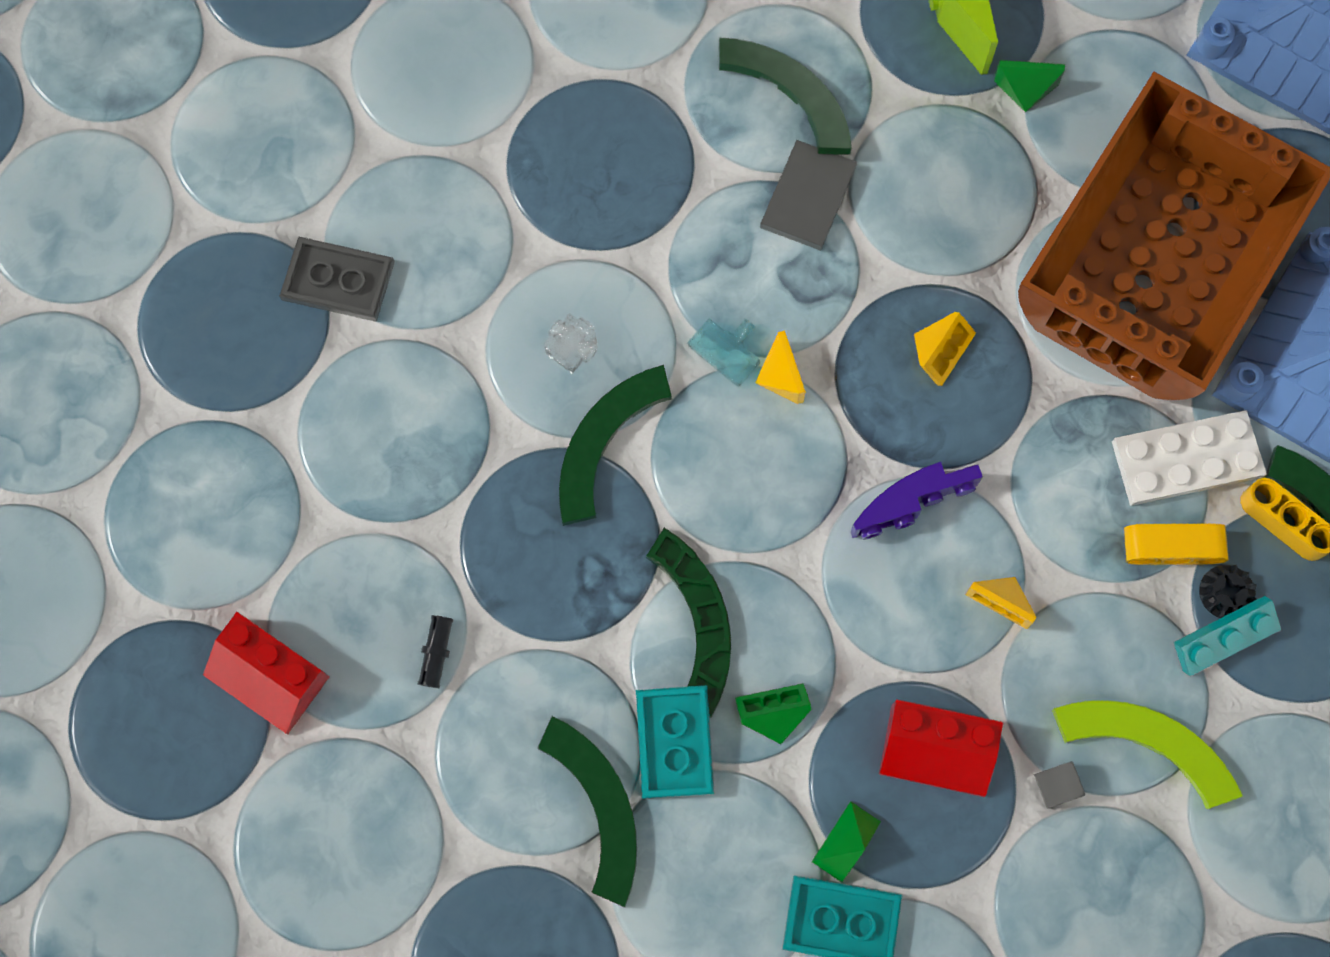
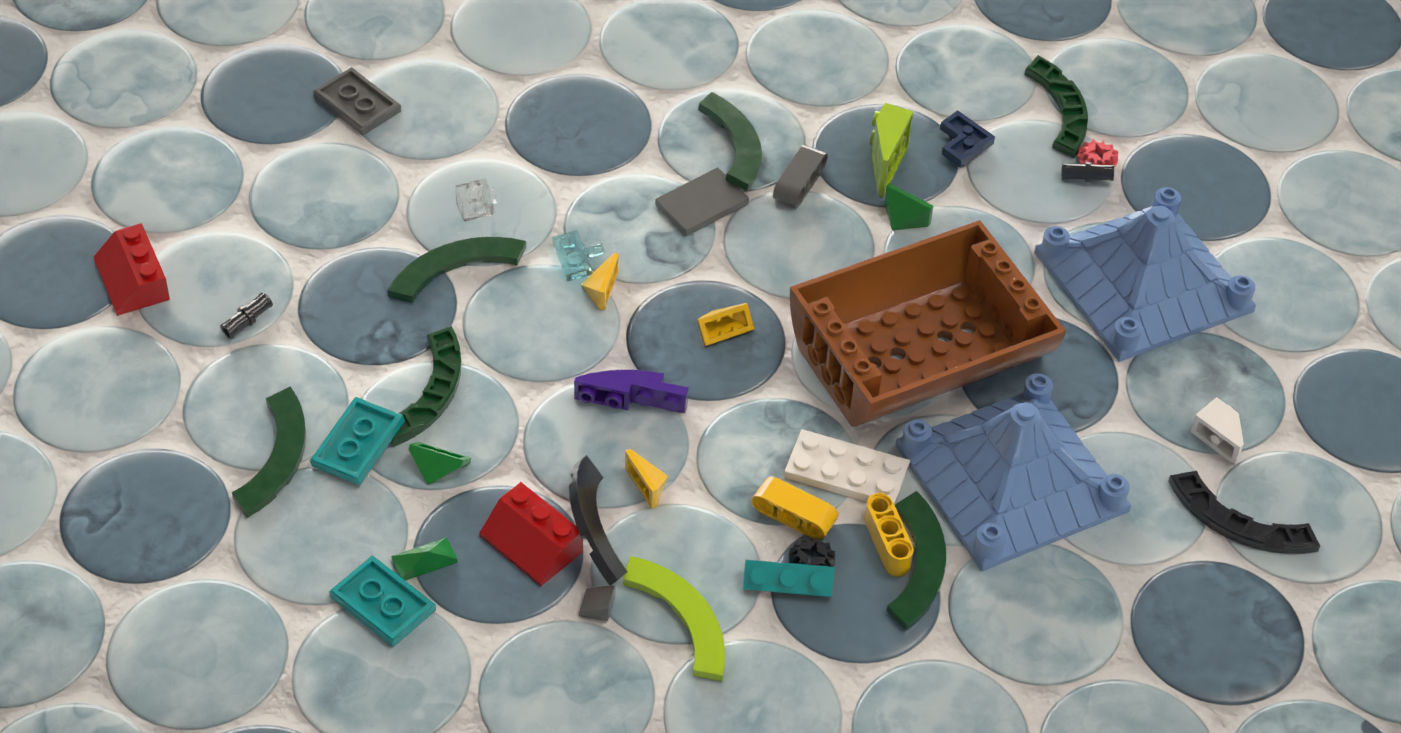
camera: 25 degrees right, 25 degrees down
(891, 100) = (800, 176): none -> dark grey beam
(991, 698) = (586, 516): none -> black tile

